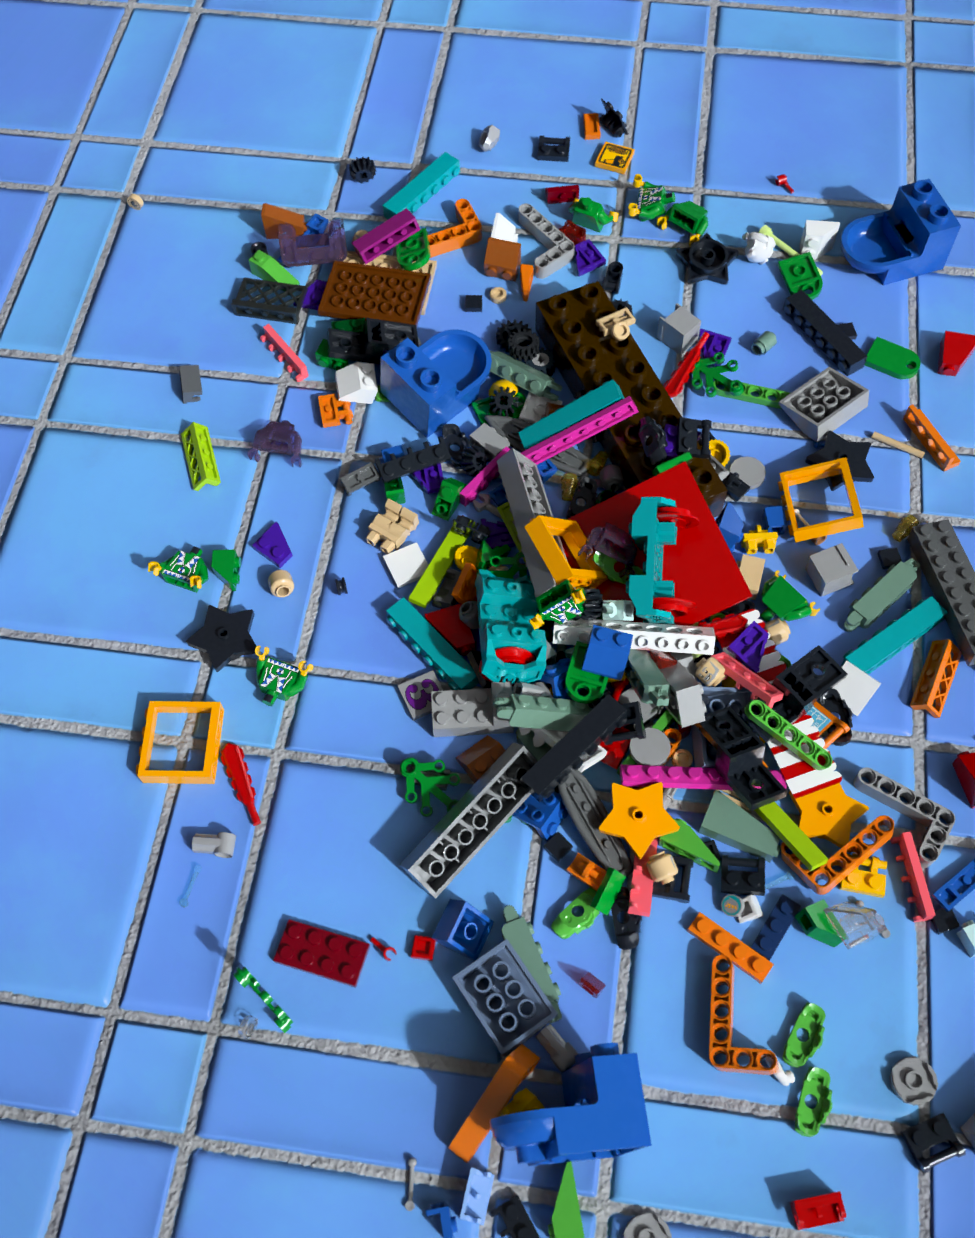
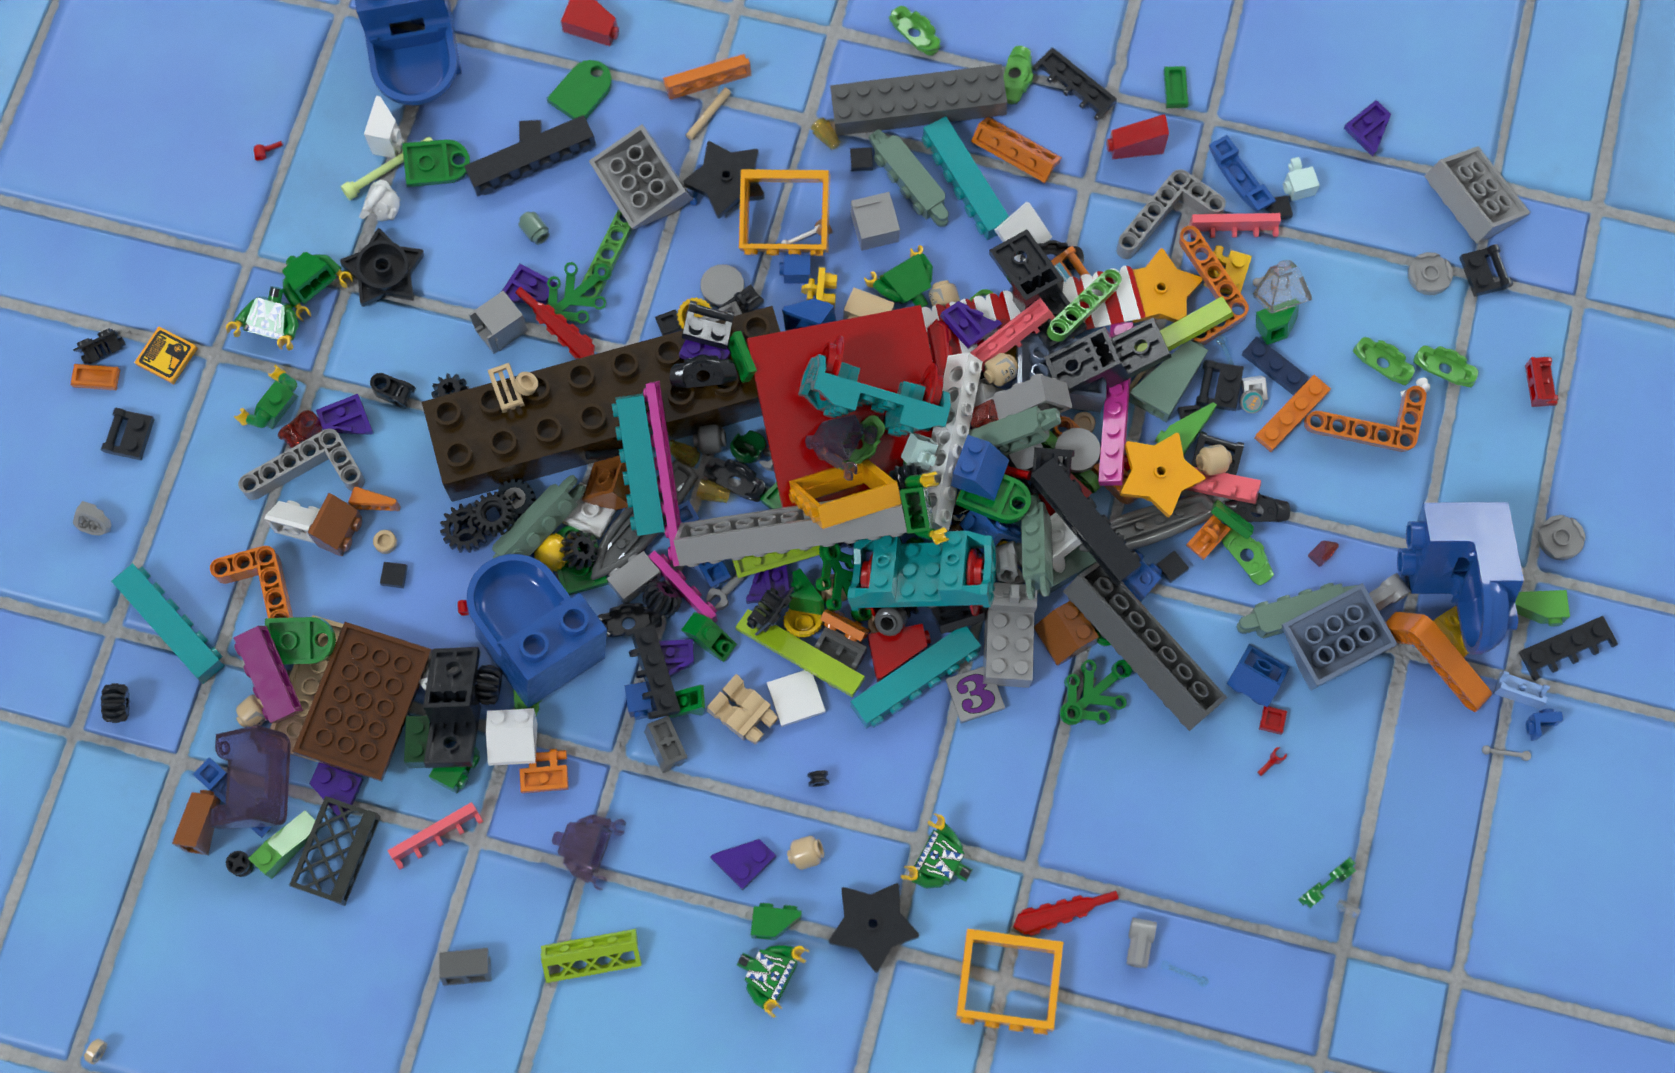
camera: 85 degrees left, 10 degrees up
(322, 953) = (1271, 828): dark red plate -> none
(562, 194) = (218, 434): dark red panel -> none

